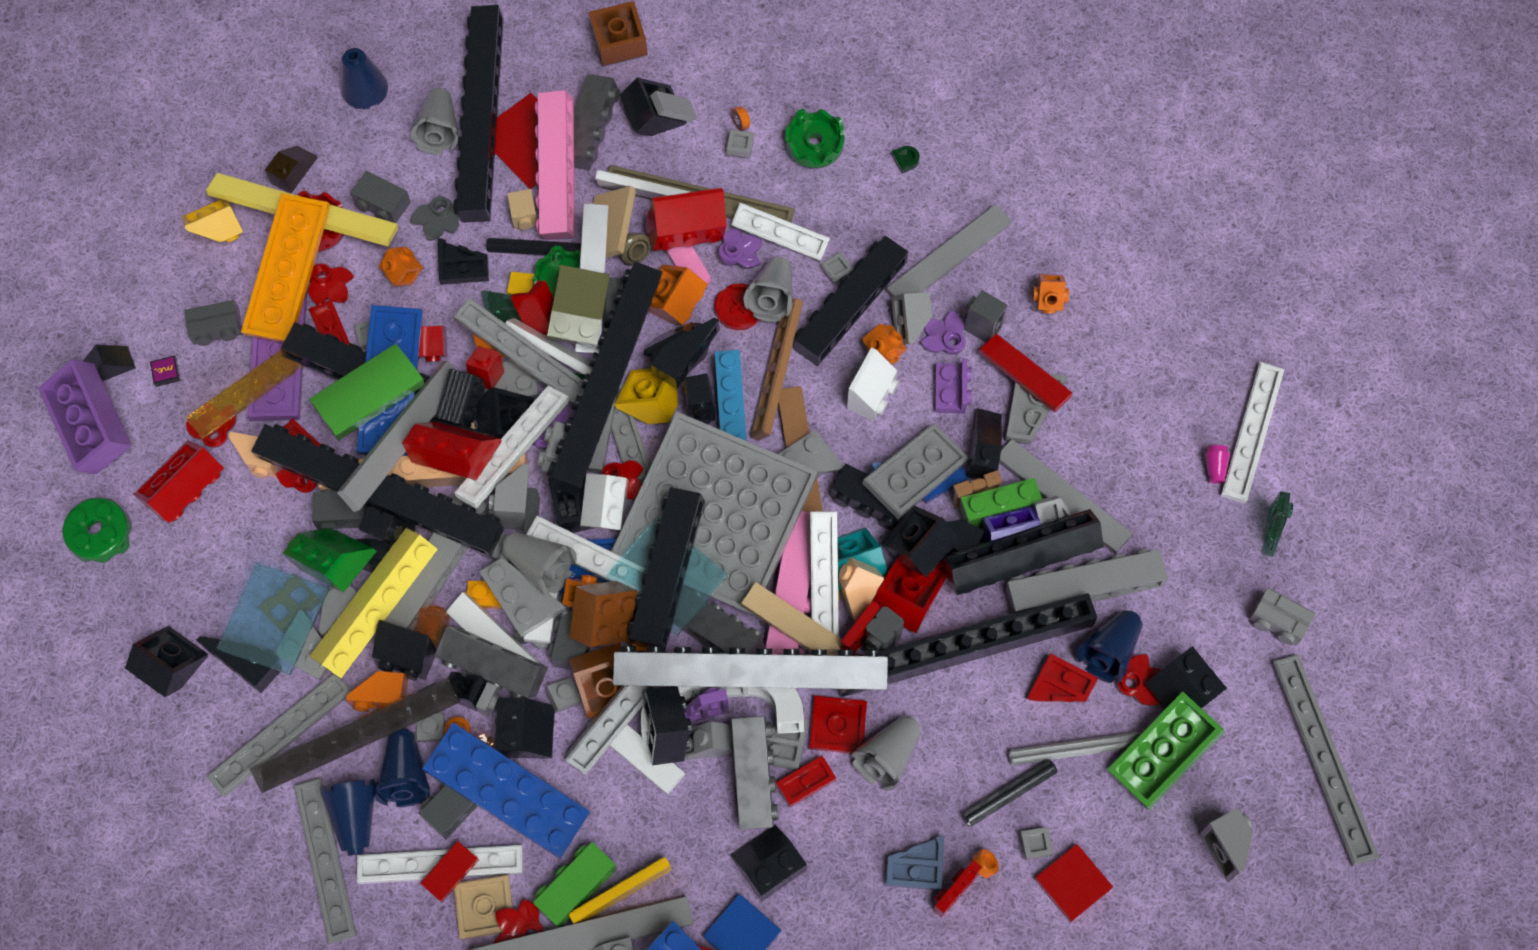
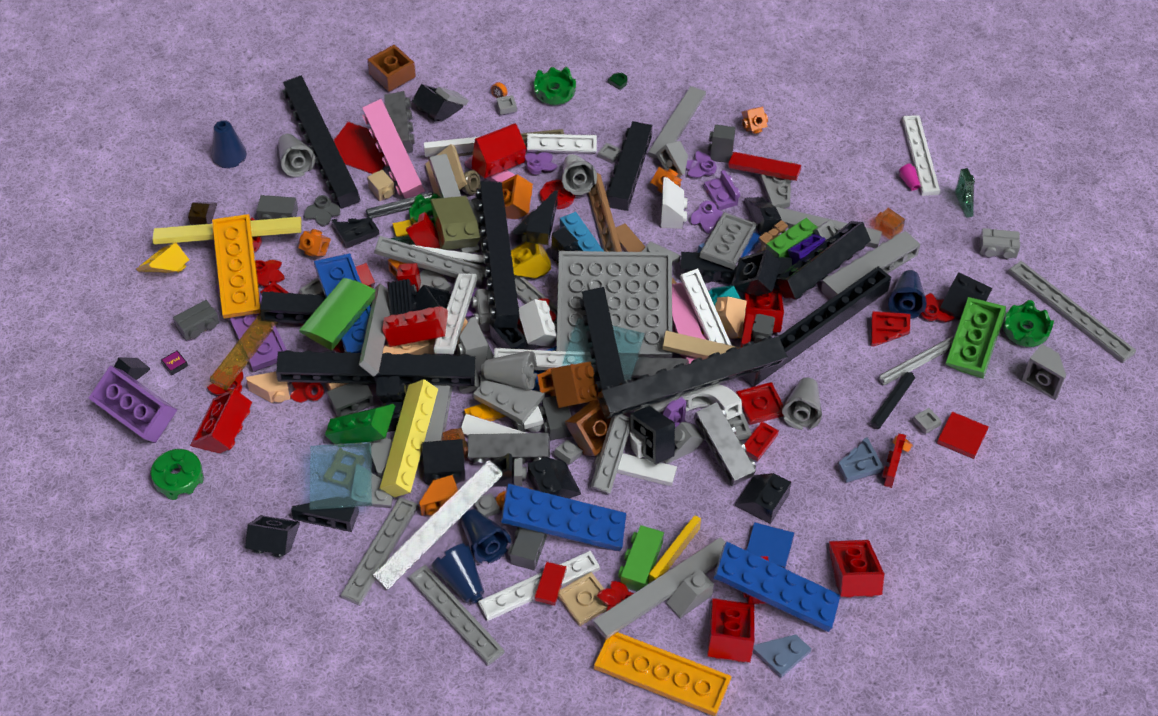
camera: 25 degrees left, 15 degrees down
(910, 420) = (707, 218): none -> medium lavender plate
(1148, 525) = (889, 223): none -> clear orange brick
(1258, 742) = (1027, 315): none -> green plate

